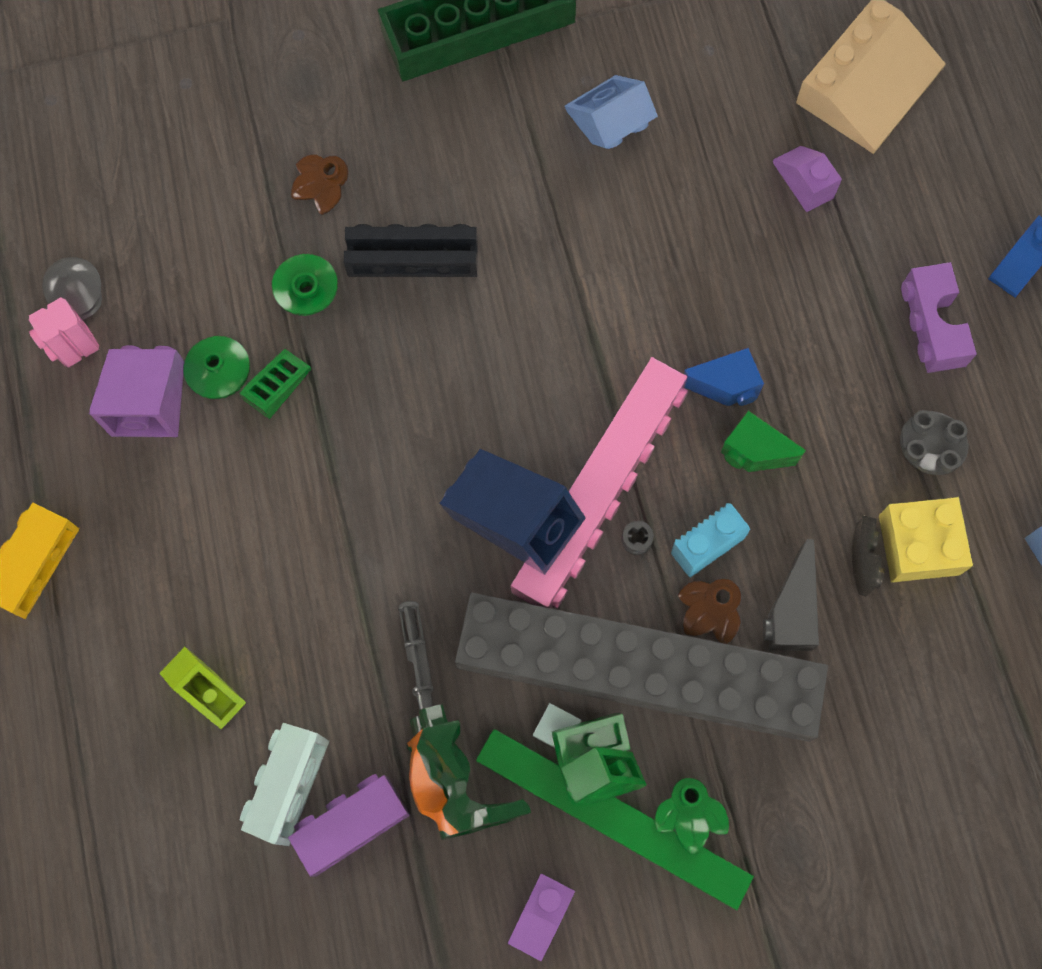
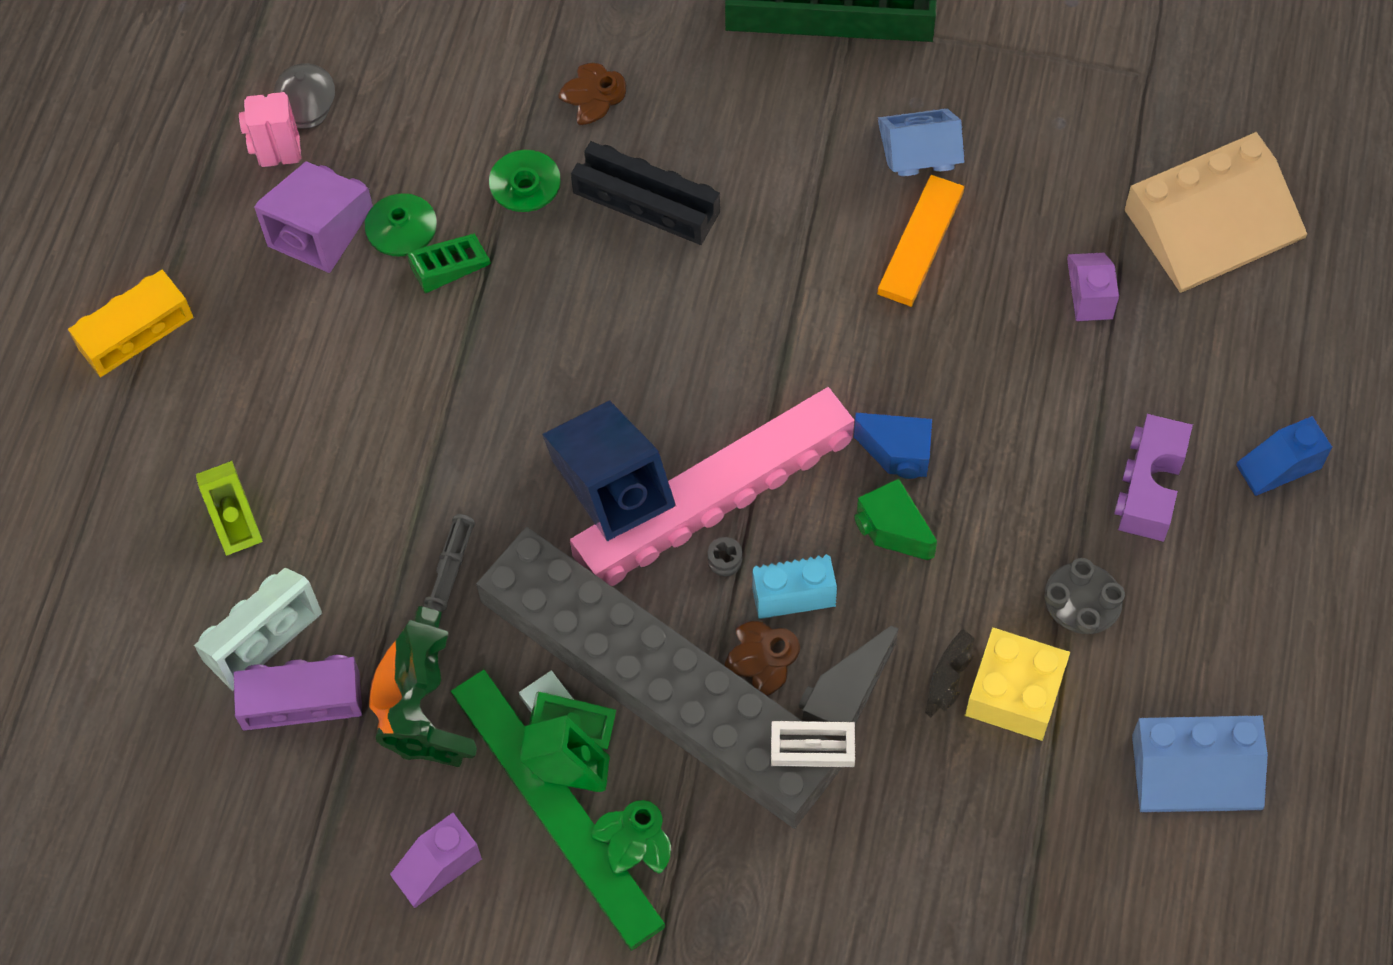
camera: 25 degrees right, 10 degrees down
(653, 197) = (920, 240): none -> light orange tile
(777, 687) = (813, 759): none -> white tile

